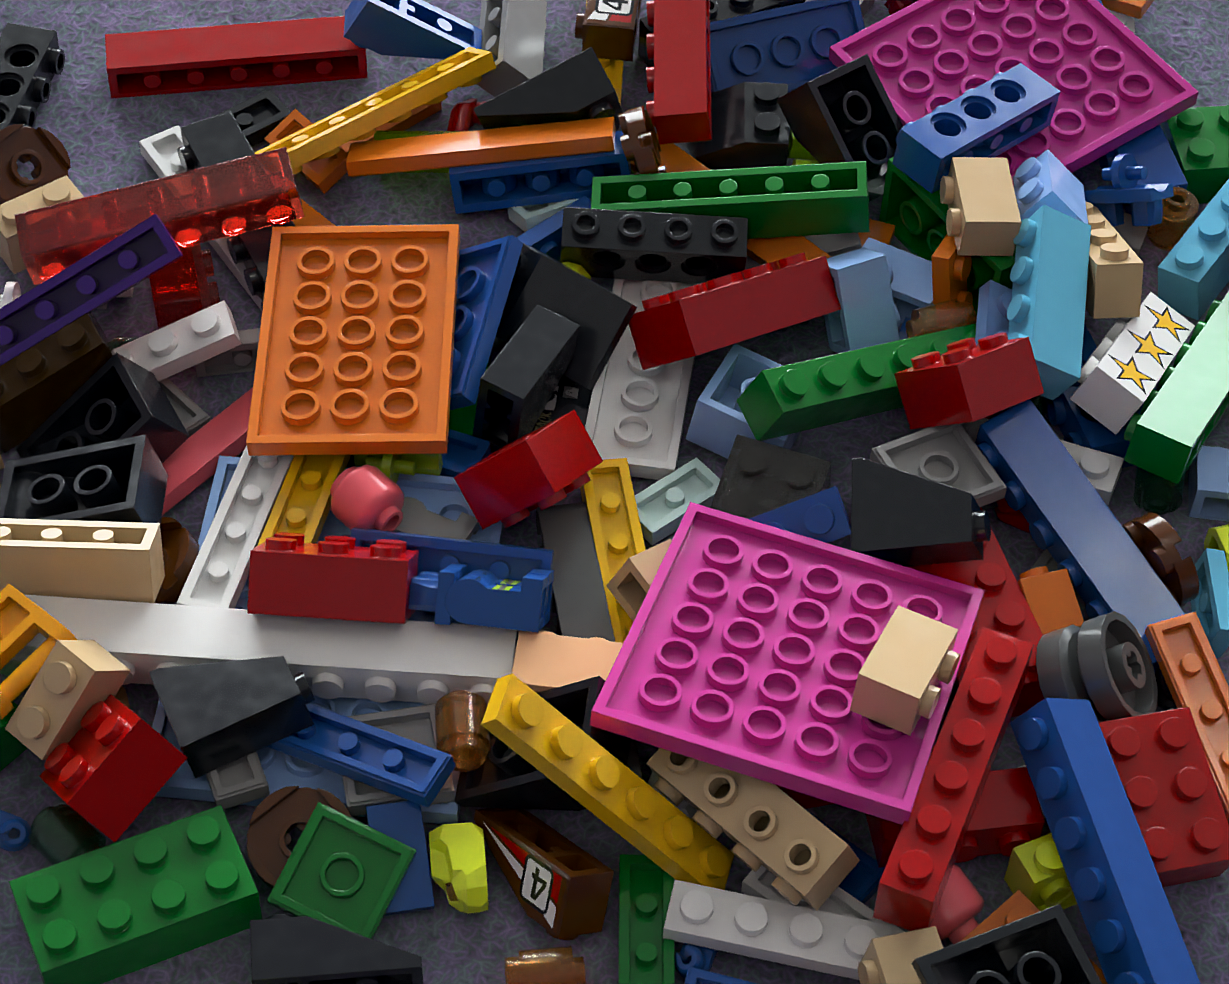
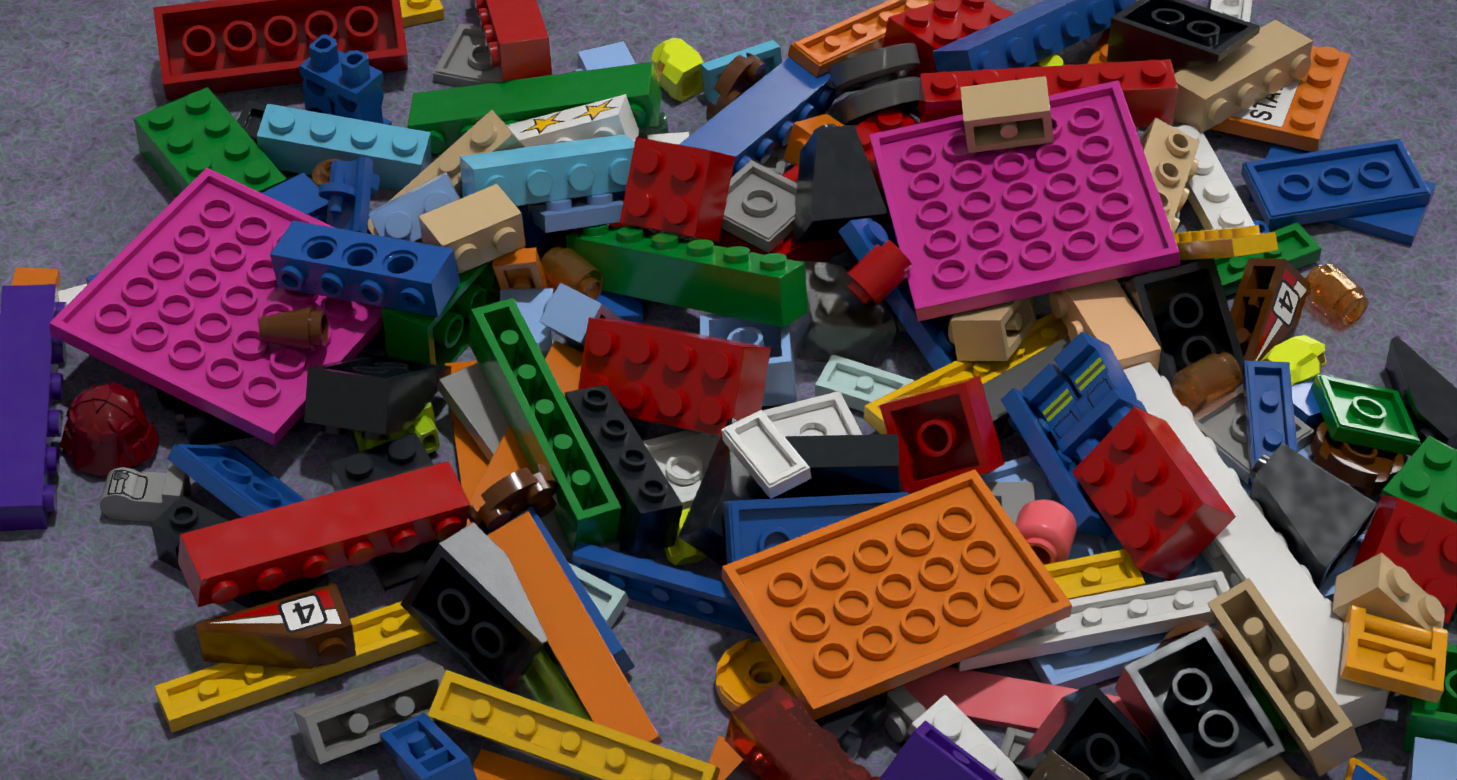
camera: 115 degrees left, 5 degrees down
(557, 290) = (766, 454): none -> white tile
(753, 488) = (878, 273): none -> red brick
(934, 80) = (297, 328): none -> reddish brown cone

